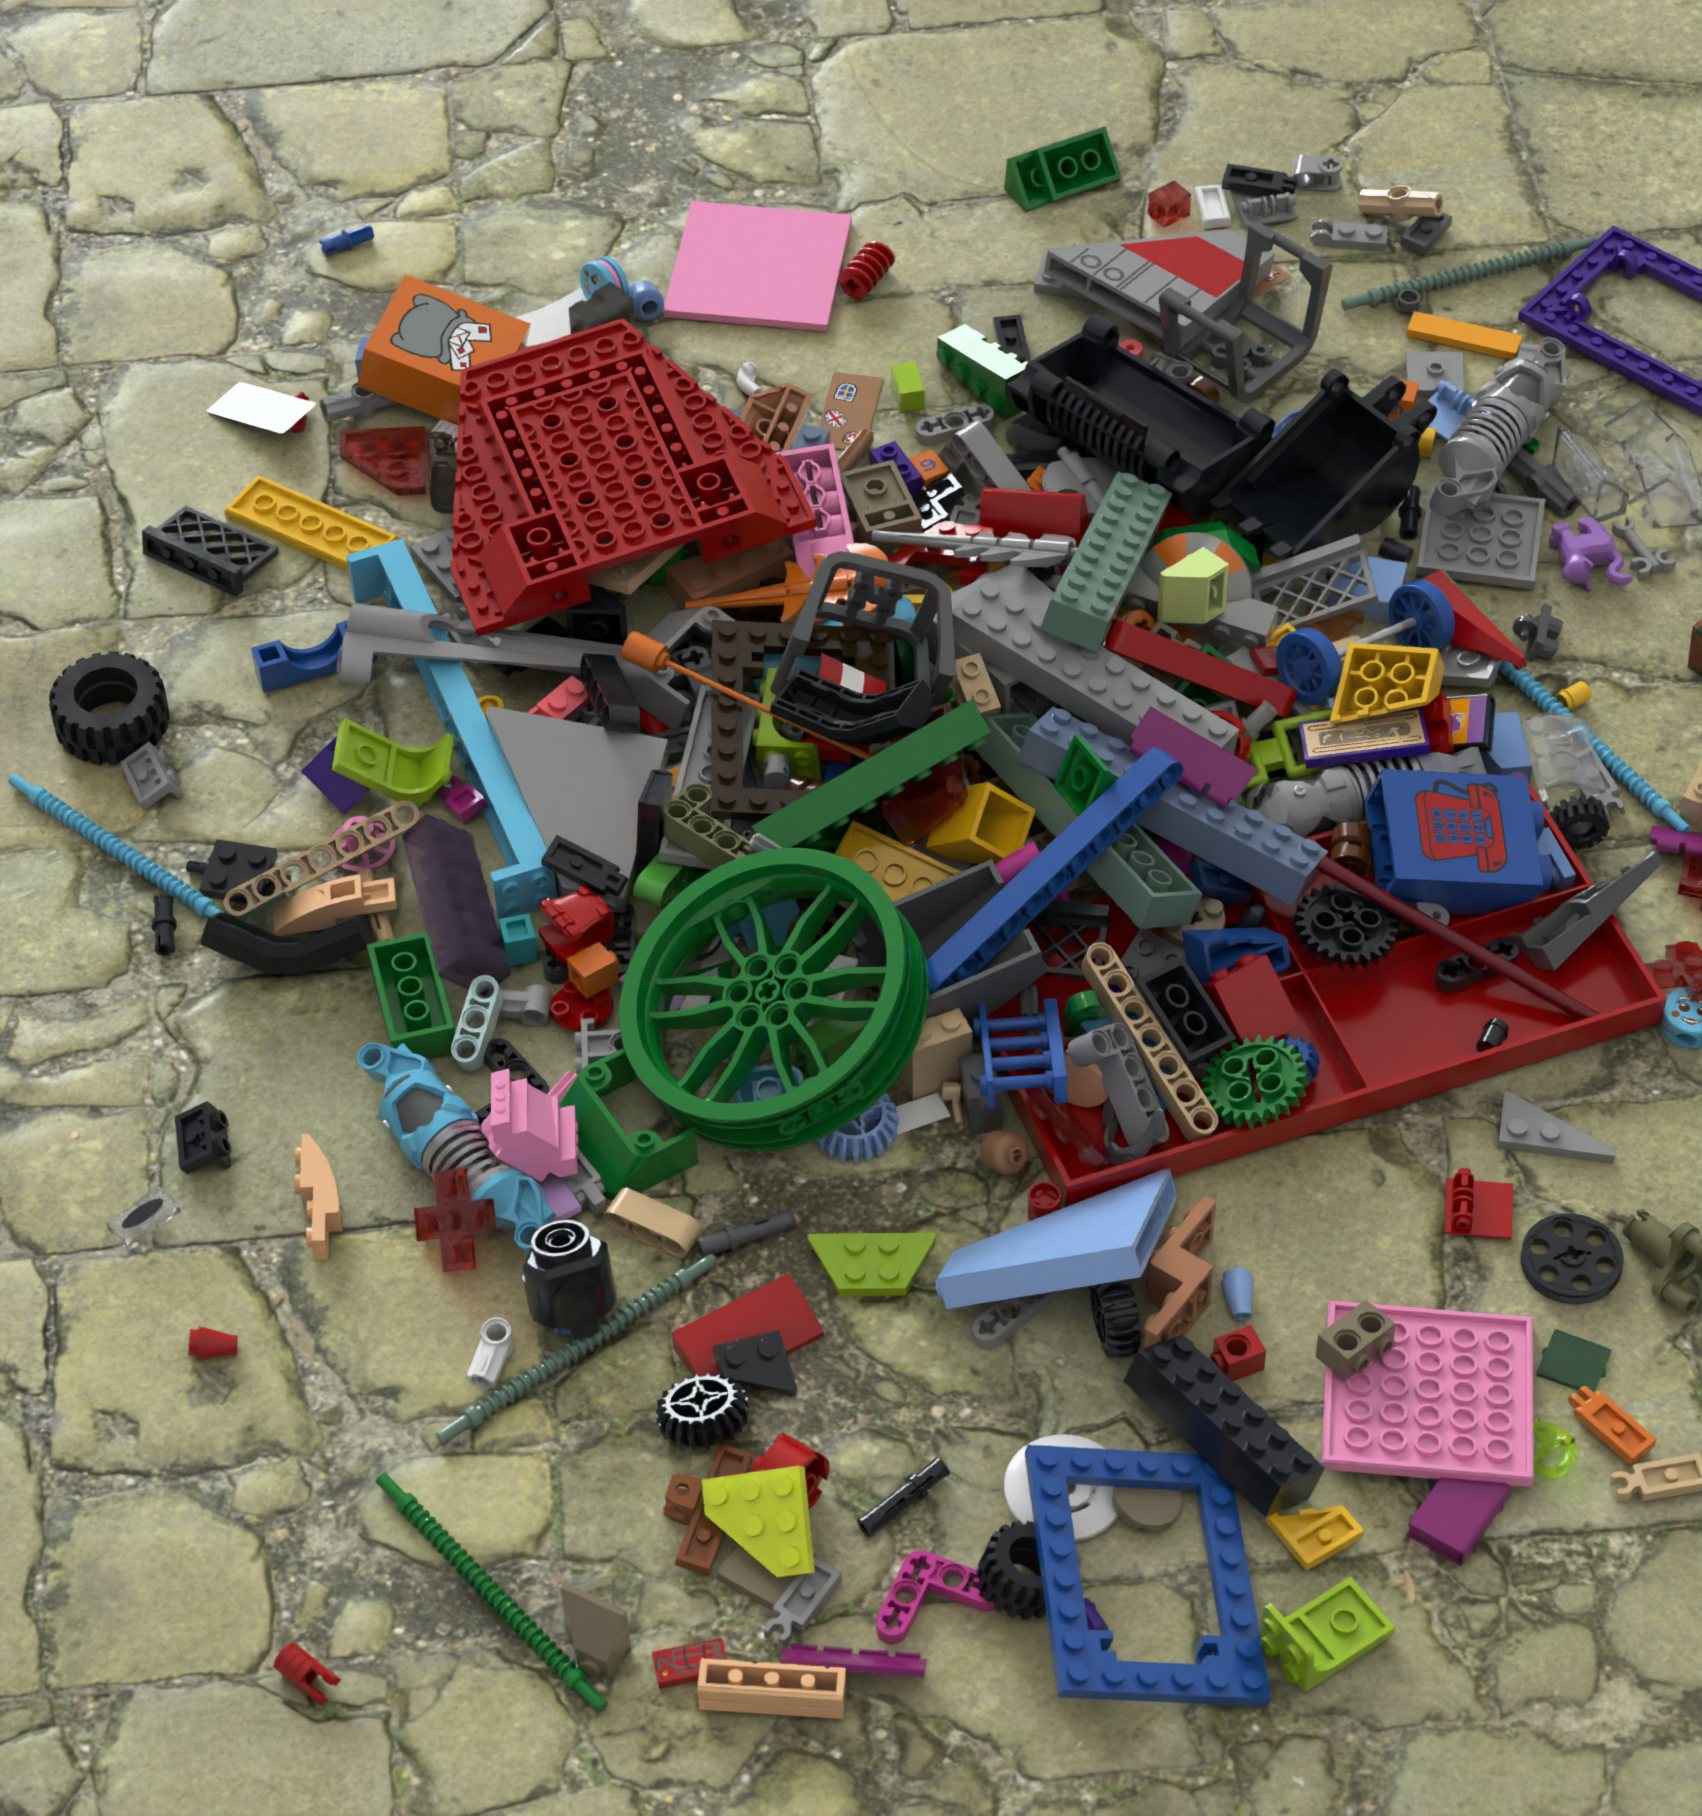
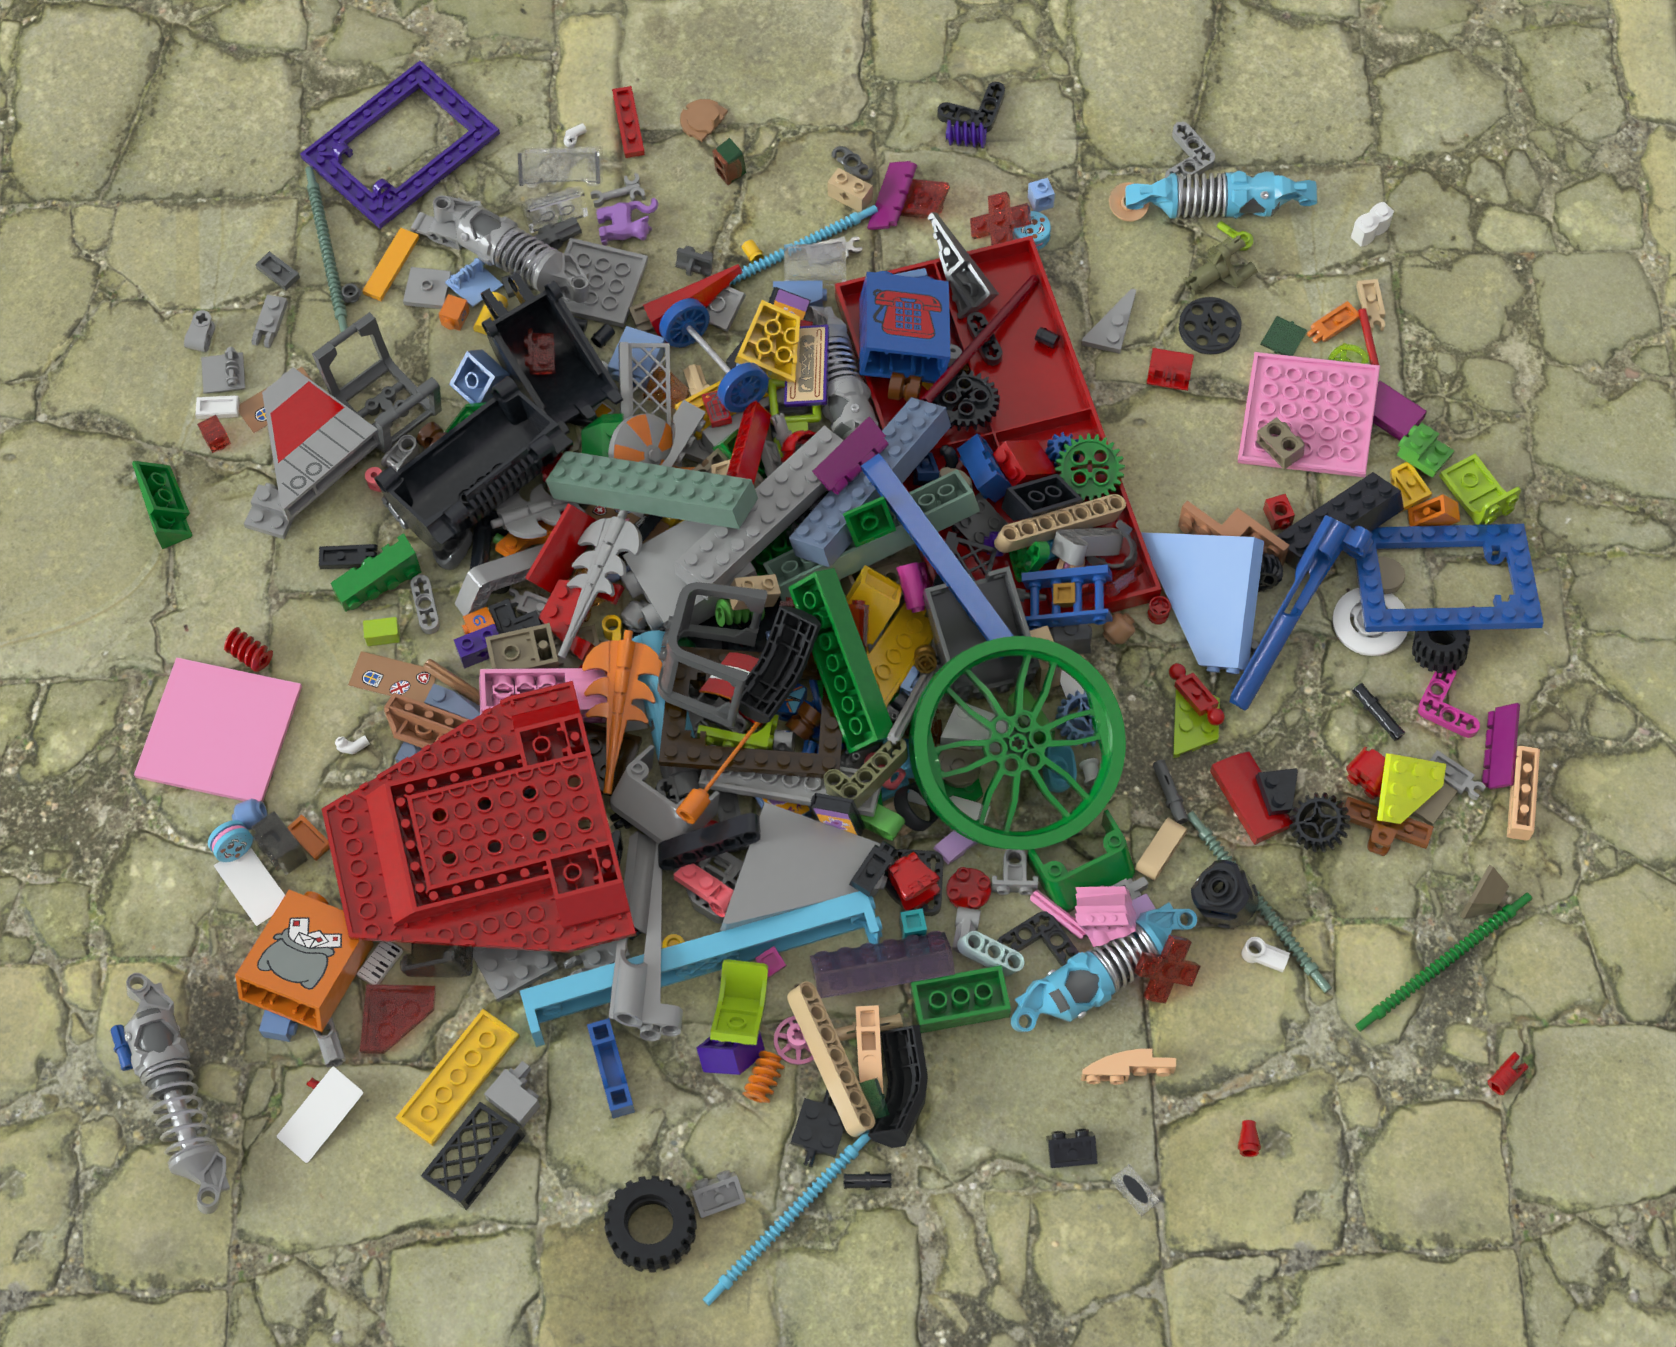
camera: 85 degrees left, 15 degrees up
(281, 571) = (510, 1096): none -> light grey hinge
(302, 807) = (763, 1077): none -> orange piece
(316, 262) = (162, 1064): none -> piece
(593, 969) = (950, 873): orange brick -> none
(682, 1663) = (1496, 843): tile -> none
(899, 1245) = (1196, 694): none -> red plate
(1023, 1044) = (1064, 594): none -> pearl gold tile
(1148, 1378) = (1318, 558): none -> blue panel
(1193, 589) = (676, 440): yellowish green slope -> none
(1238, 1290) = (1226, 506): light blue cone -> none
(1257, 181) = (204, 370): black hinge -> none
(1270, 1571) = (1435, 512): none -> orange slope
(1339, 474) = (540, 352): none -> clear red bracket
(1387, 1552) = (1424, 450): none -> bright green plate
(1400, 203) = (246, 290): tan piece -> none
(1590, 1472) = (1368, 336): none -> red bar
(1592, 821) = (872, 258): black tyre -> none

